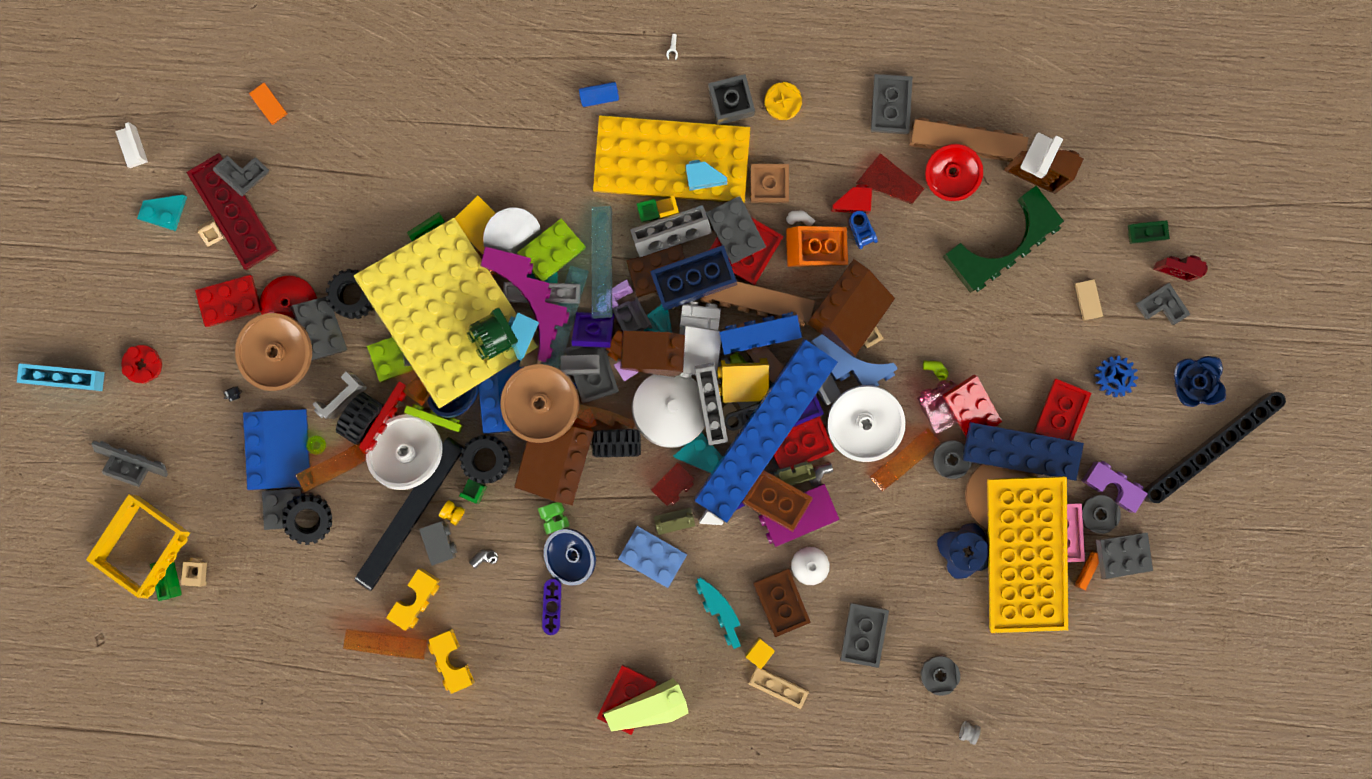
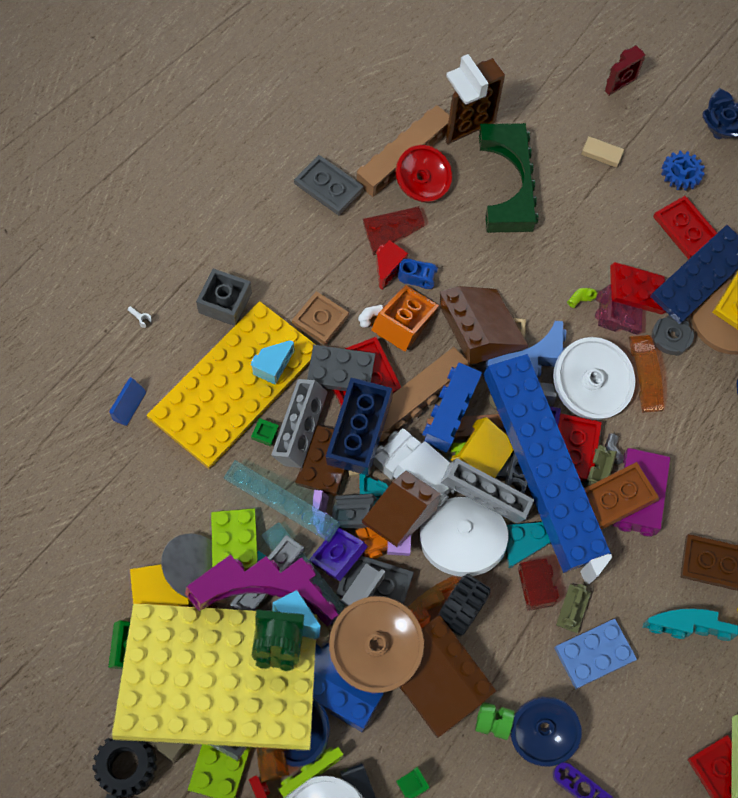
camera: 55 degrees left, 20 degrees down
(468, 459) = (393, 727): black tyre -> none
(667, 207) = (276, 411): yellow panel -> none
(783, 101) = (258, 263): yellow tile -> none
(810, 565) = (696, 514): white cylinder -> none
(1148, 232) = (576, 78): dark green plate -> none
(1165, 300) = (642, 100): dark grey plate -> none

